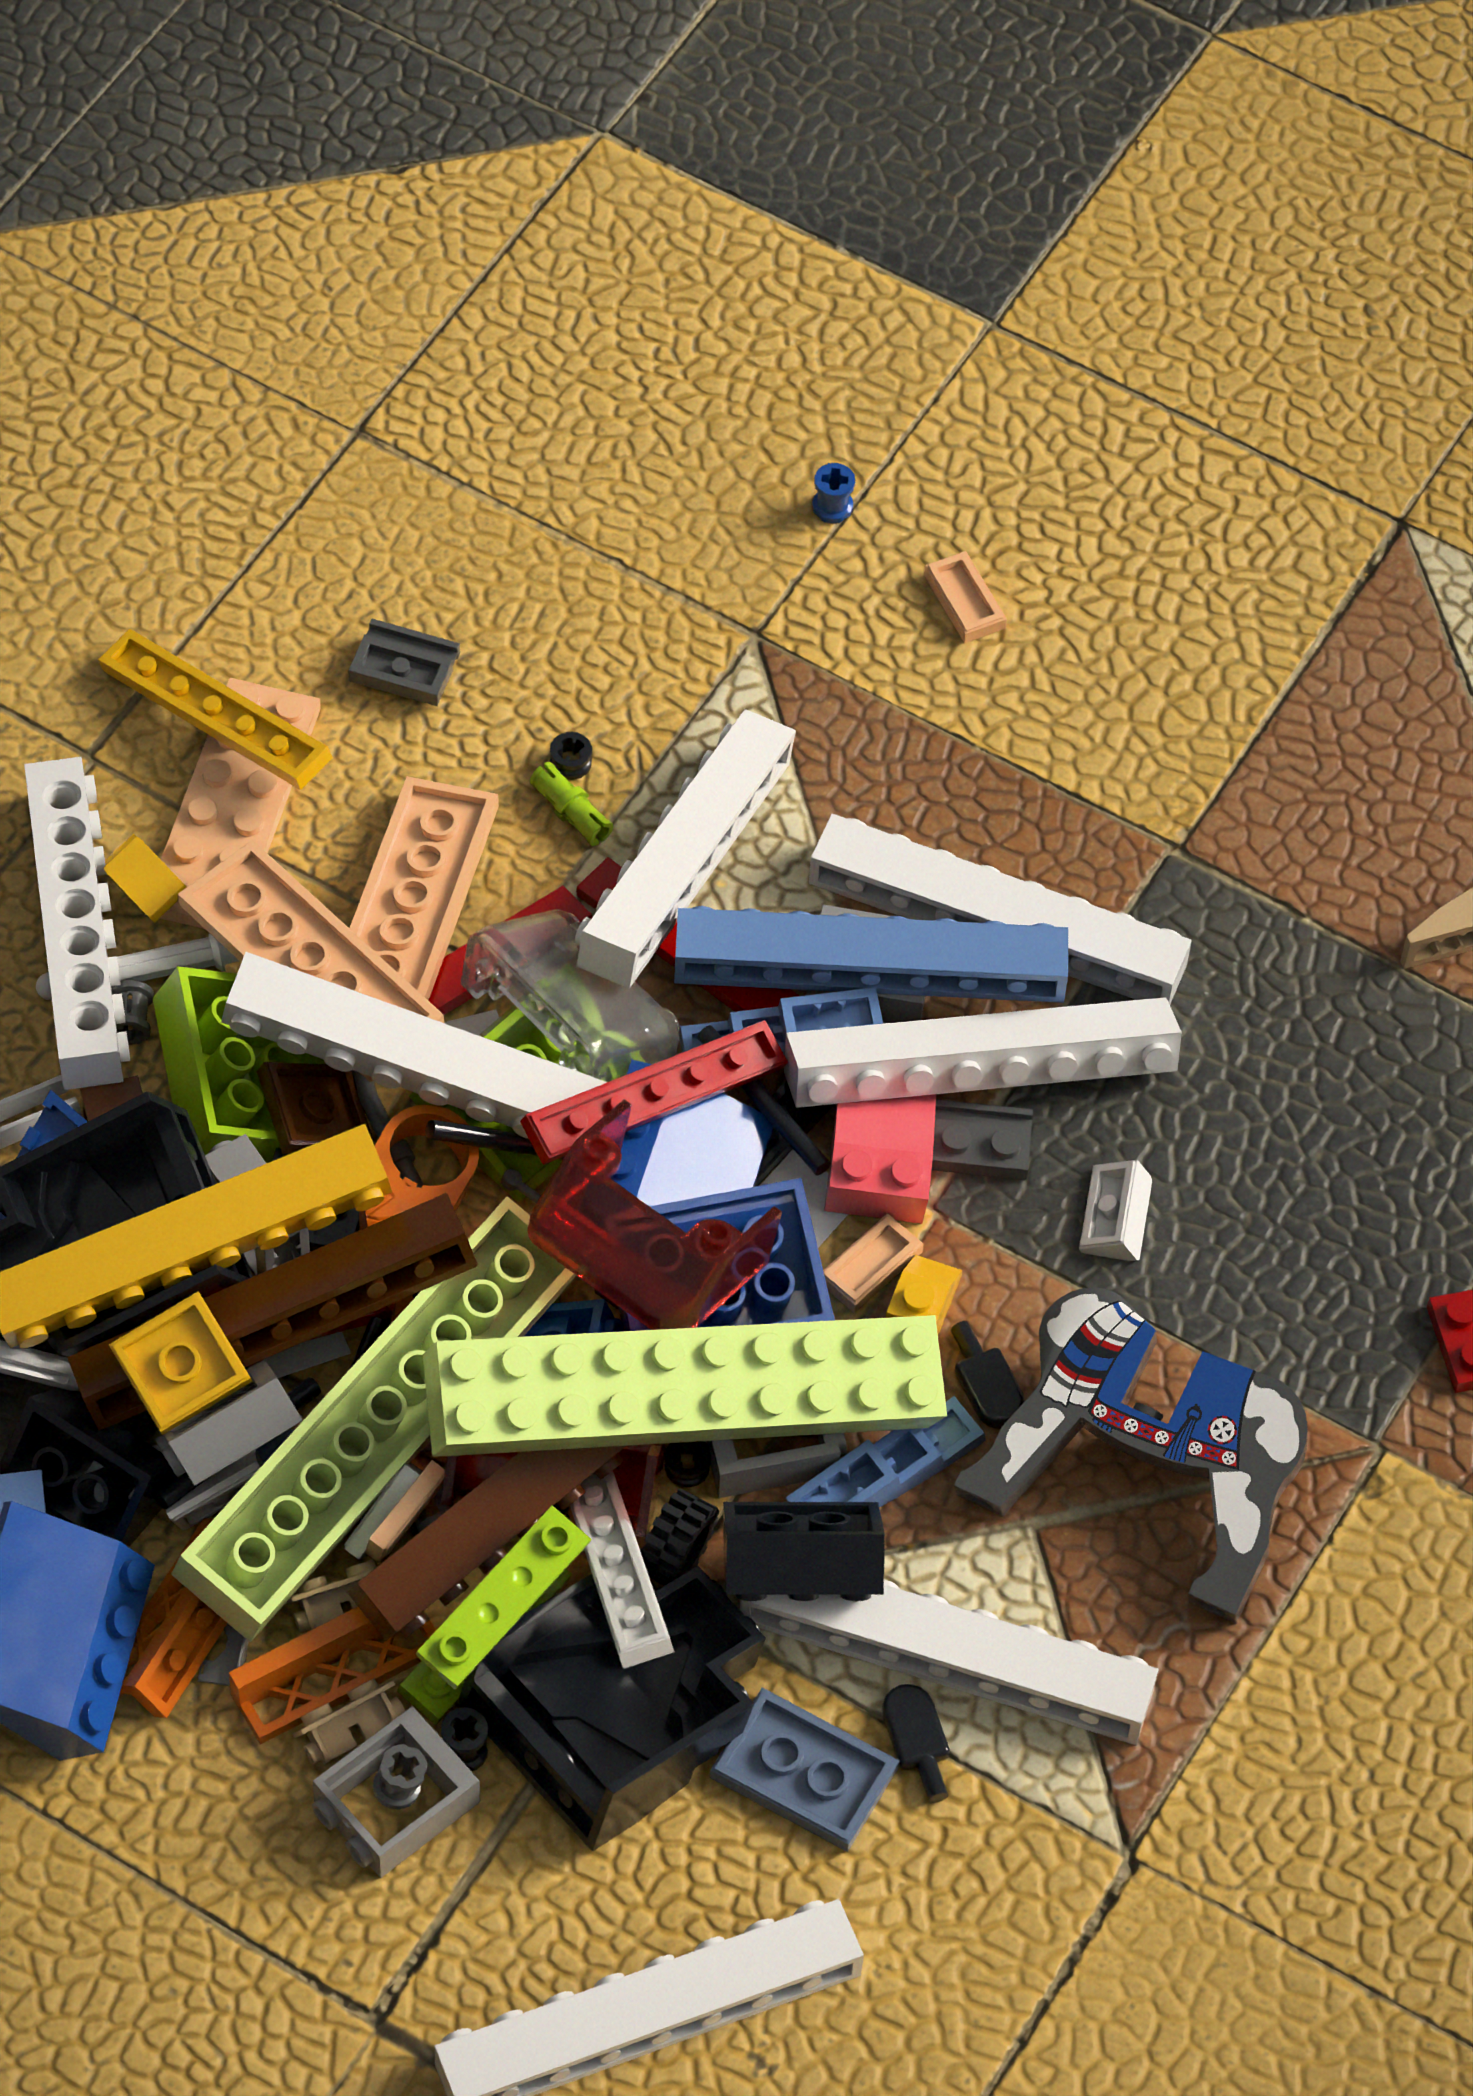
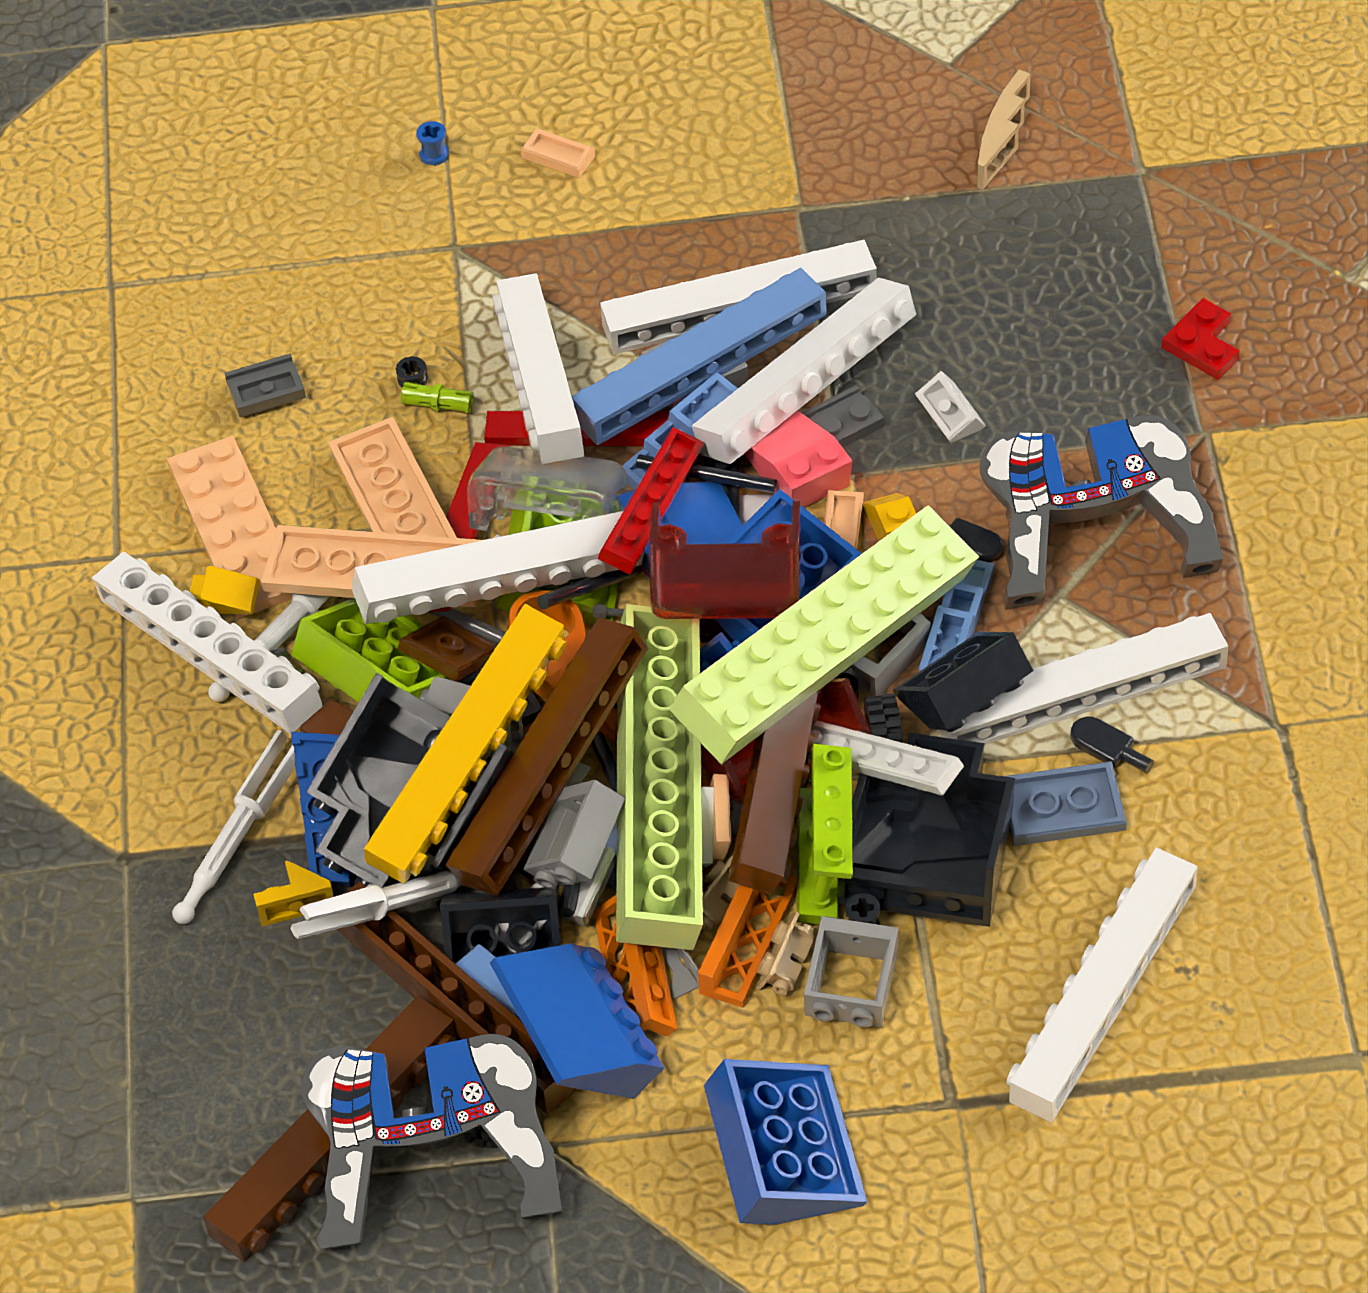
camera: 30 degrees left, 5 degrees down
(157, 1927) = (782, 1141): none -> blue slope
(180, 1363) = (525, 814): yellow tile -> none
(215, 709) = (180, 475): yellow plate -> none
(400, 1761) = (863, 959): dark grey bush -> none

